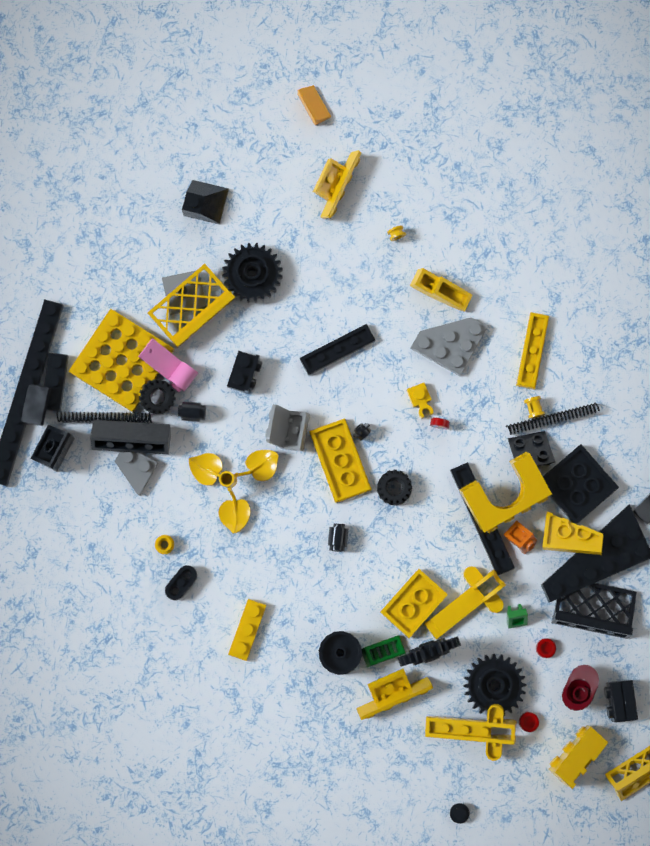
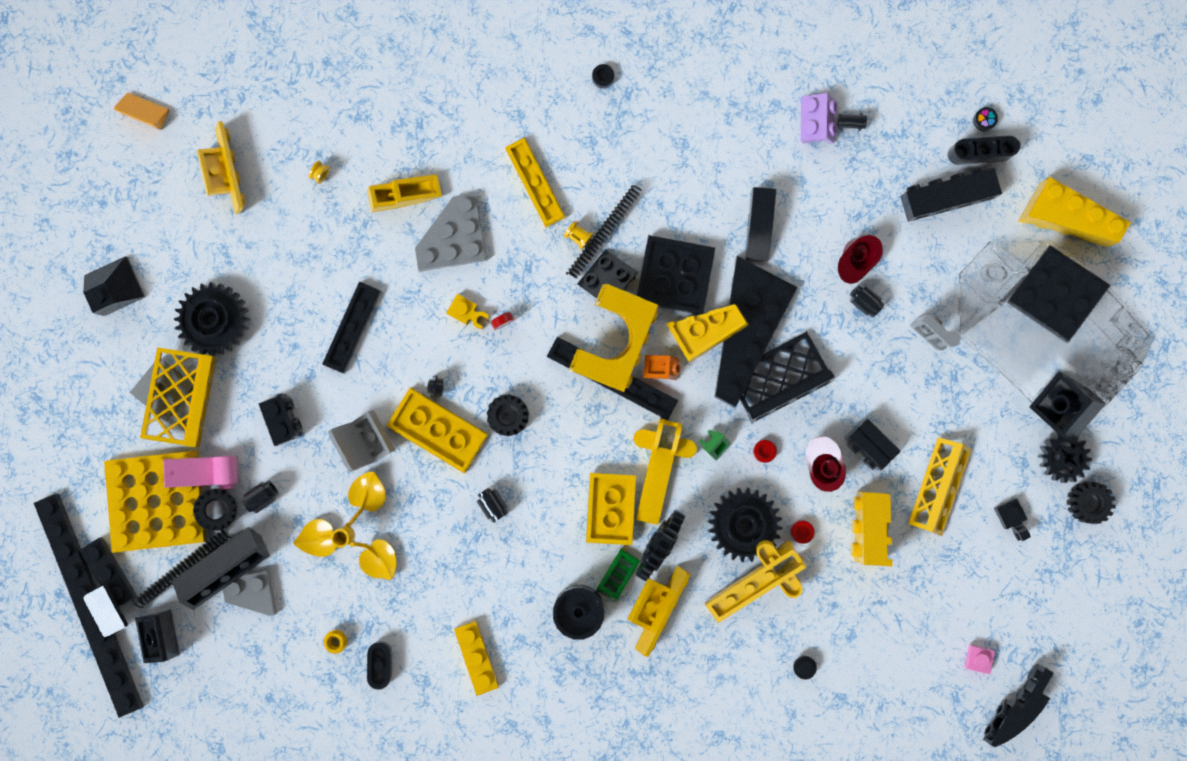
camera: 30 degrees left, 5 degrees up
(632, 316) = (603, 76): none -> black tile

